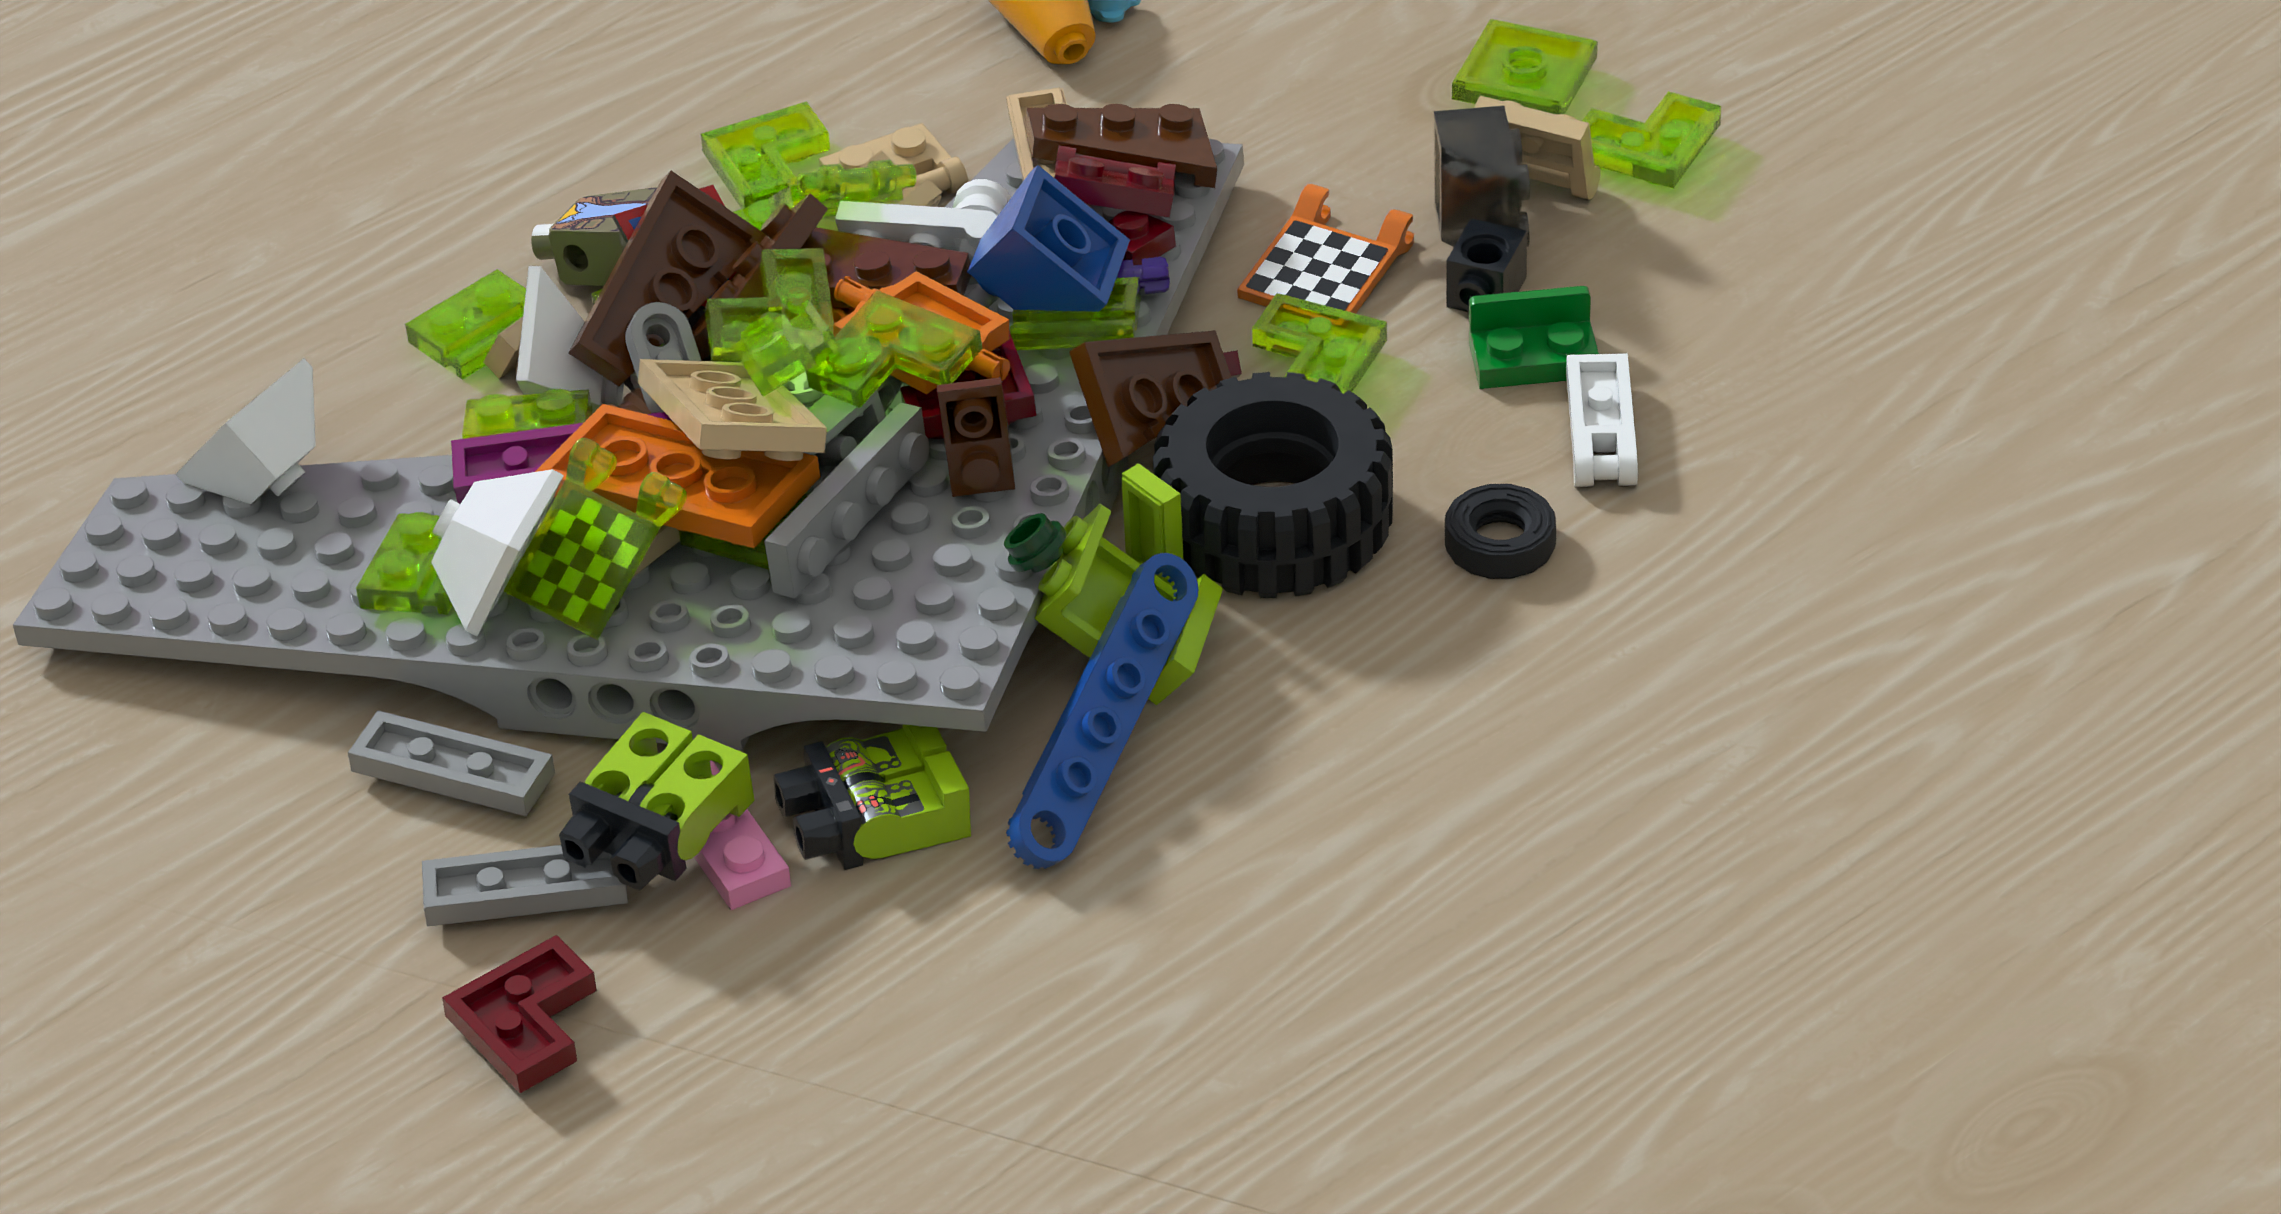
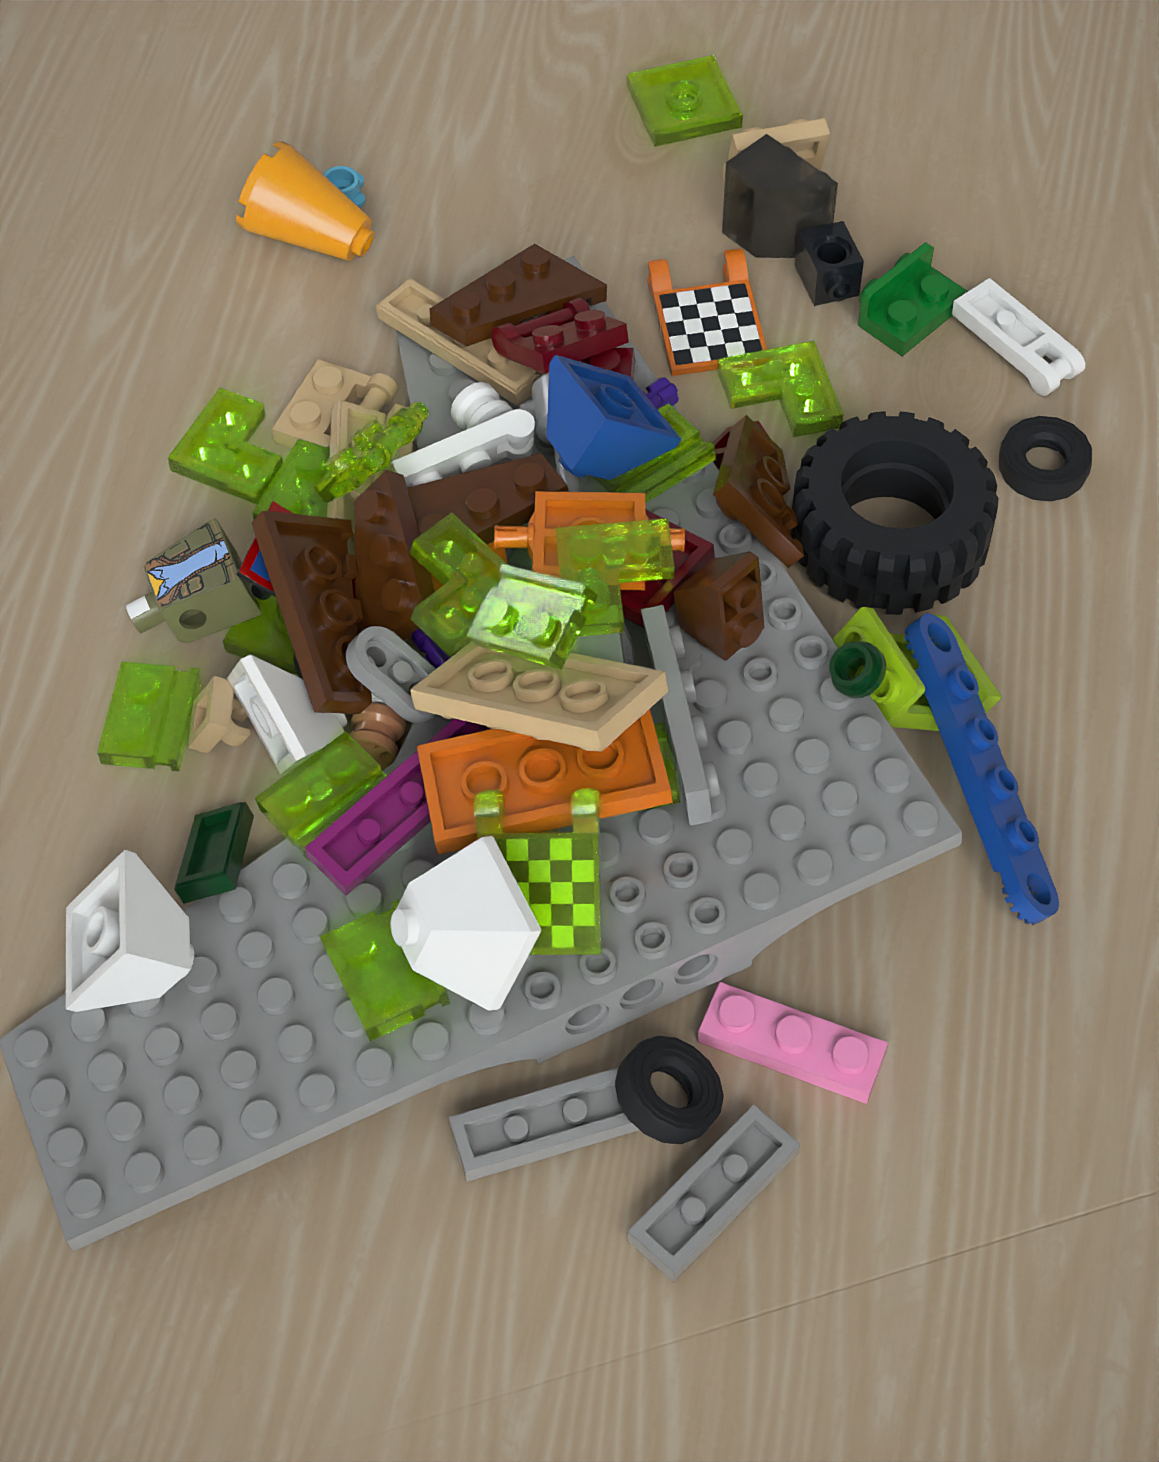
camera: 40 degrees left, 15 degrees up
(404, 434) = (214, 852): none -> dark green tile
(511, 1010) = (827, 1326): dark red plate -> none
(526, 780) = (652, 1113): none -> black tyre
(654, 805) = (778, 1083): hips -> none
(875, 796) = (886, 960): hips -> none
(1150, 516) = (861, 585): lime tile -> none
(1661, 146) = (826, 95): clear neon green plate -> none

